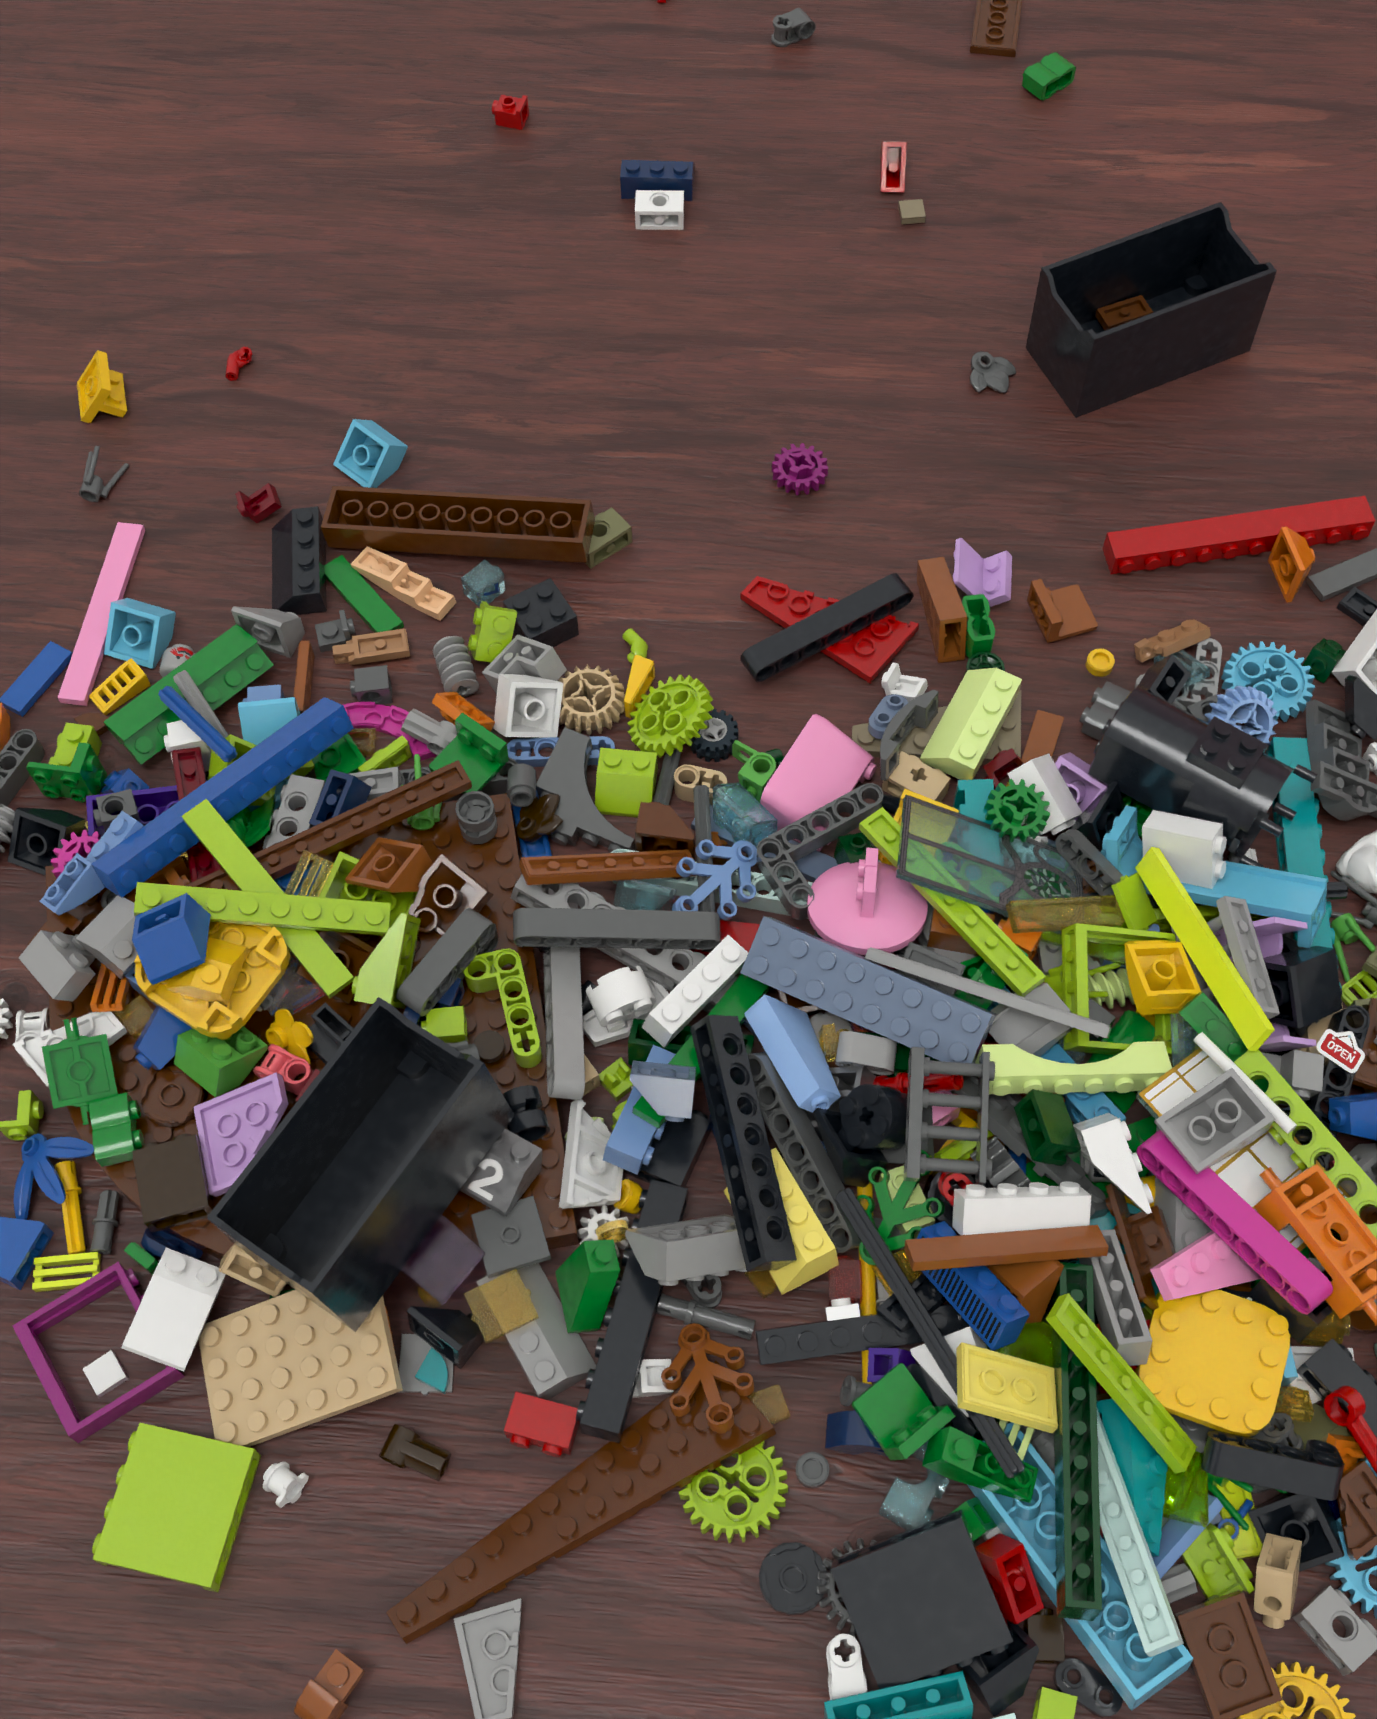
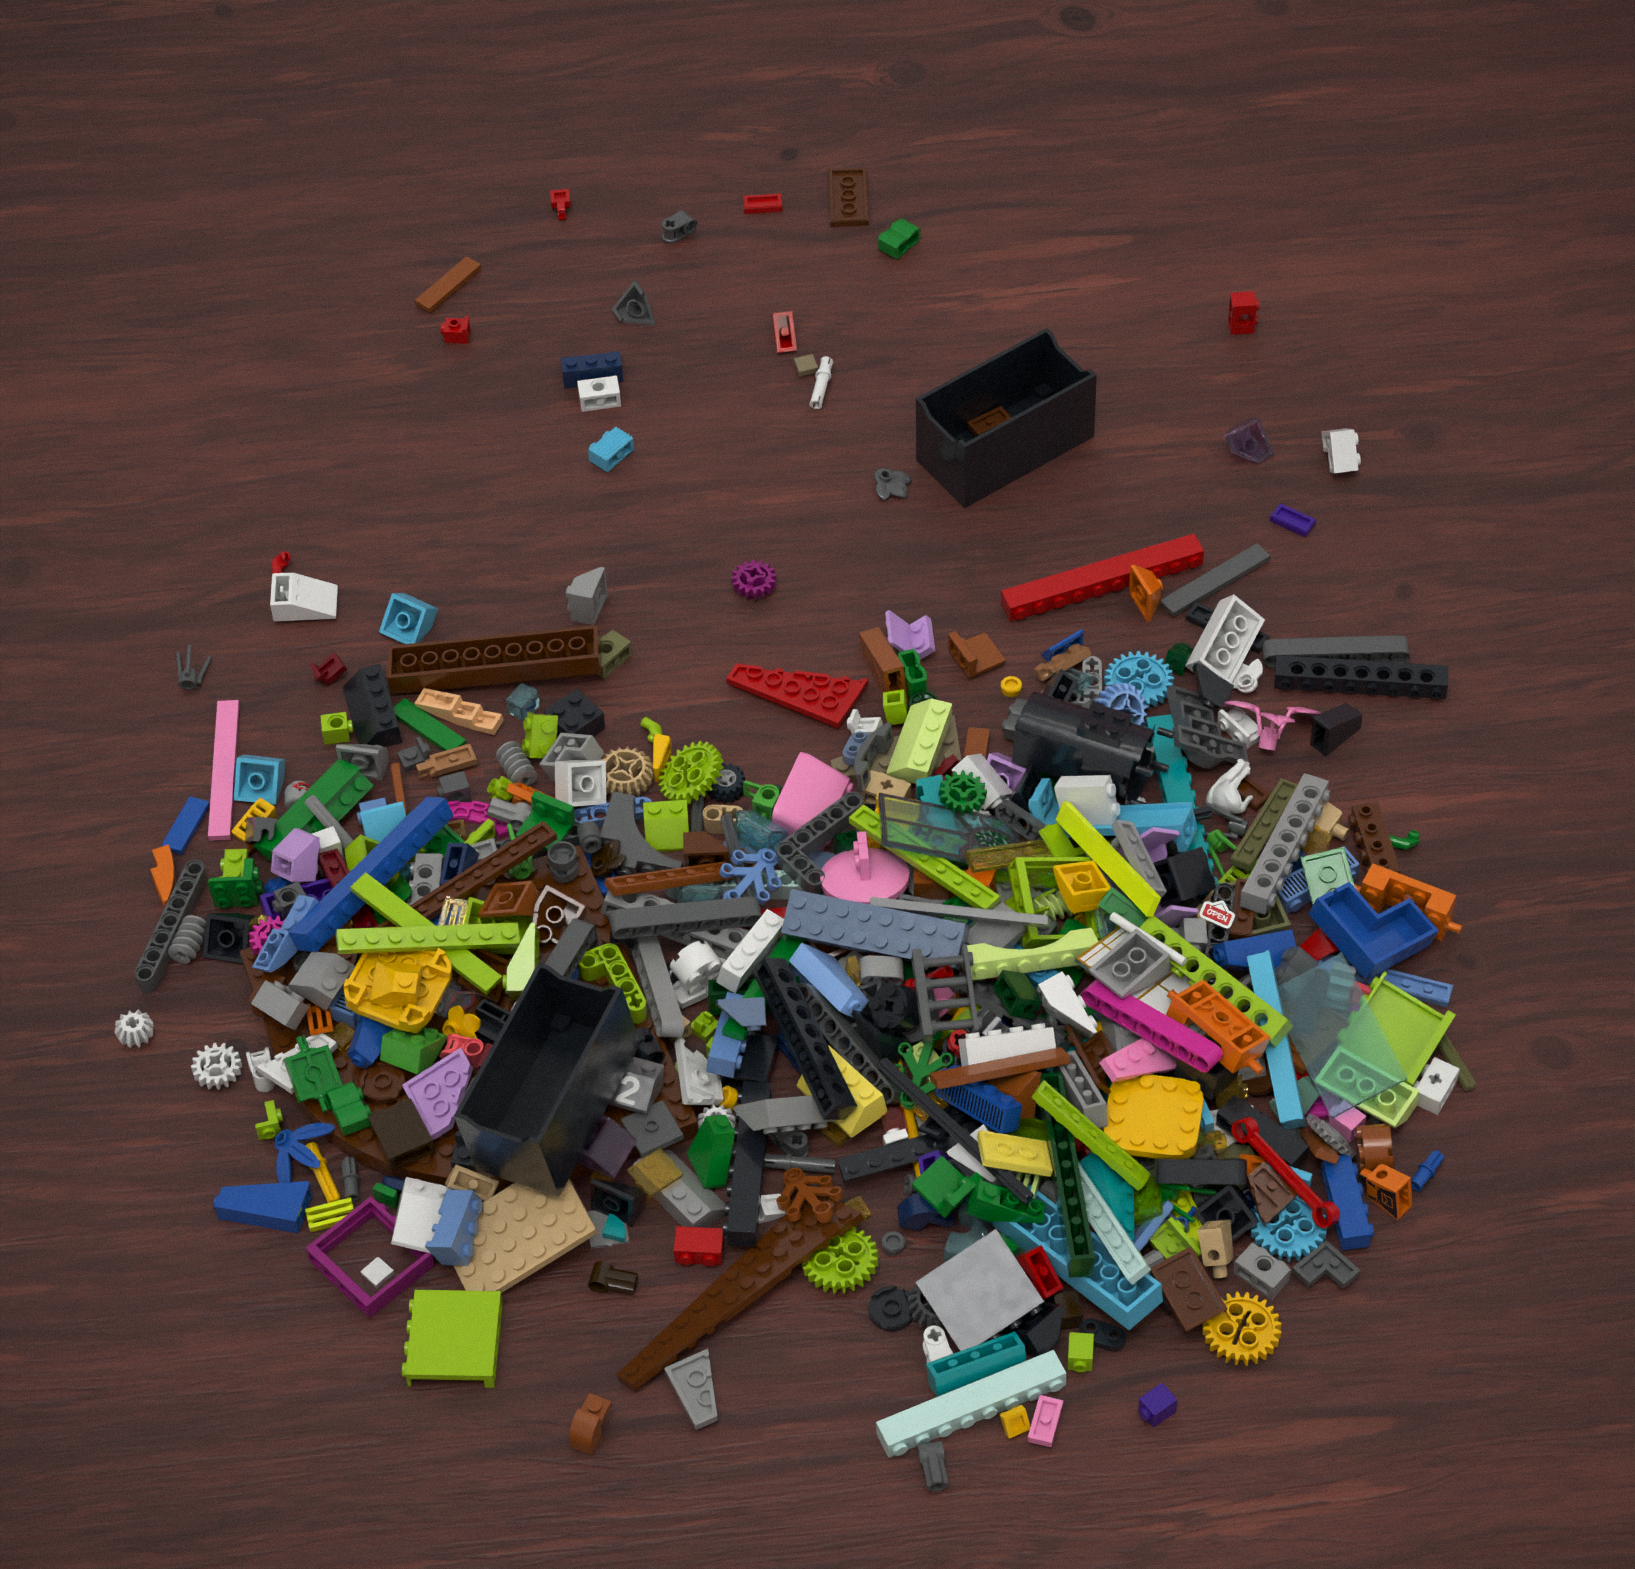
camera: 10 degrees left, 10 degrees down
(100, 389) = (173, 602): yellow bracket -> none
(117, 697) = (257, 827): none -> dark grey hinge
(144, 751) = (296, 856): none -> lavender slope
(171, 938) = (371, 962): blue slope -> none
(197, 724) = (334, 830): blue axle -> none
(214, 1340) = (456, 1228): none -> medium blue wedge
(248, 580) = (336, 728): none -> lime brick
(249, 407) = (302, 598): none -> white slope
(284, 1483) = (525, 1311): white brick -> none
(424, 694) = (498, 787): none -> lime gear
(514, 58) = (448, 284): none -> dark orange tile
(590, 459) = (587, 596): none -> light grey slope
(612, 1230) = (726, 1110): clear yellow tile -> none
(659, 279) = (611, 449): none -> medium azure brick
(722, 112) = (634, 306): none -> dark grey slope
(826, 627) = (798, 691): black beam -> none
(895, 15) = (762, 203): none -> red tile
(929, 229) = (822, 377): none -> white pin
(947, 668) = (895, 706): none -> lime brick
(1175, 618) = (1062, 646): none -> blue slope

